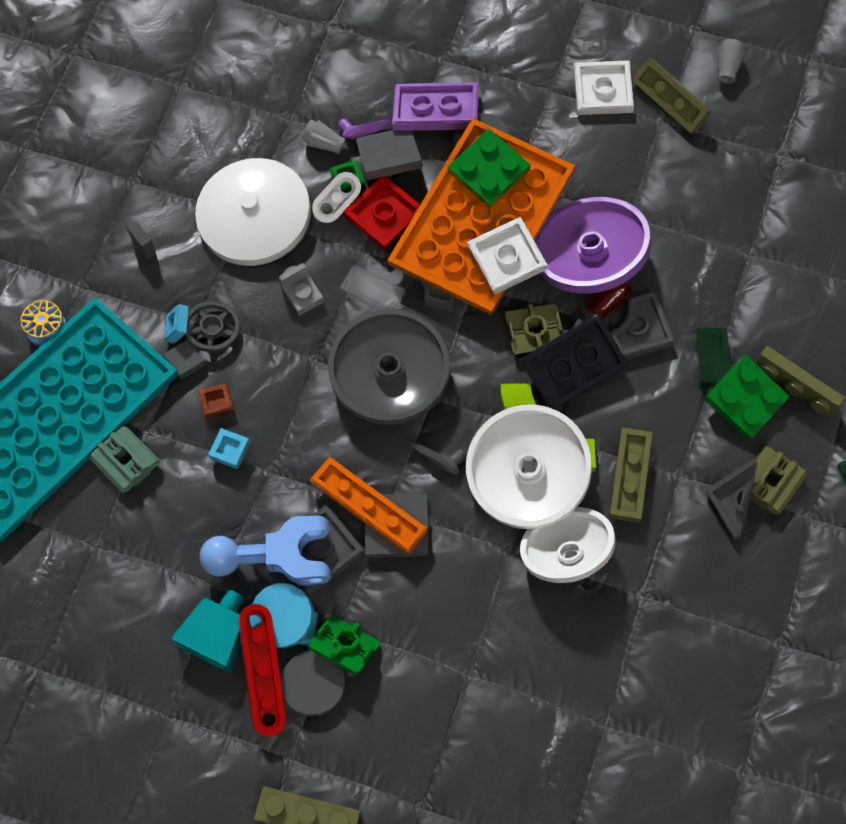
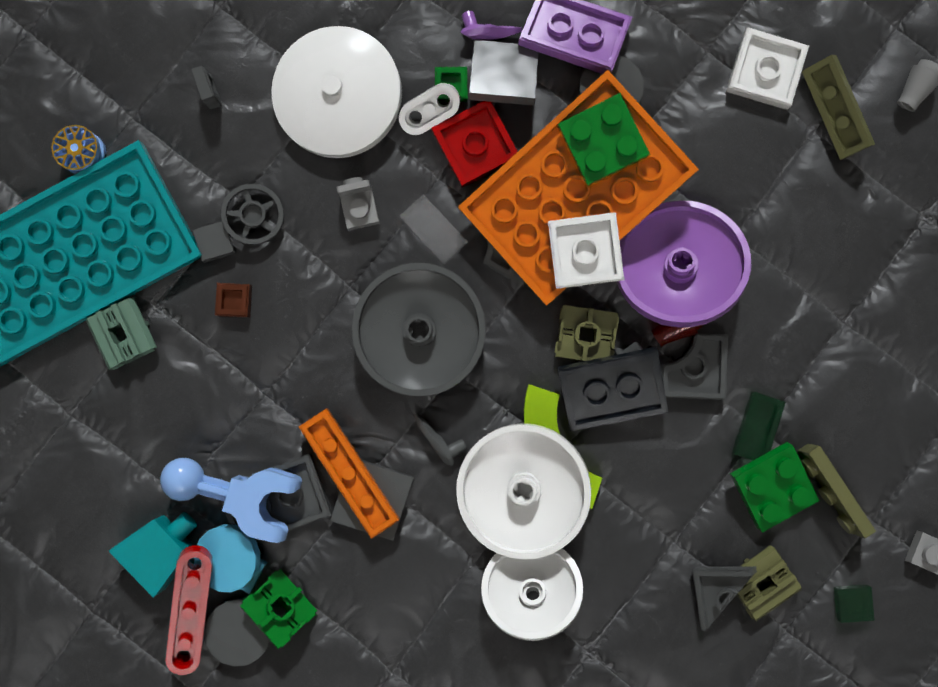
camera: 15 degrees right, 20 degrees up
(176, 323) = (215, 200): medium azure tile -> none
(229, 448) = (229, 360): medium azure plate -> none
(322, 137) = (438, 26): light grey cone -> none
(630, 475) = (624, 529): olive plate -> none

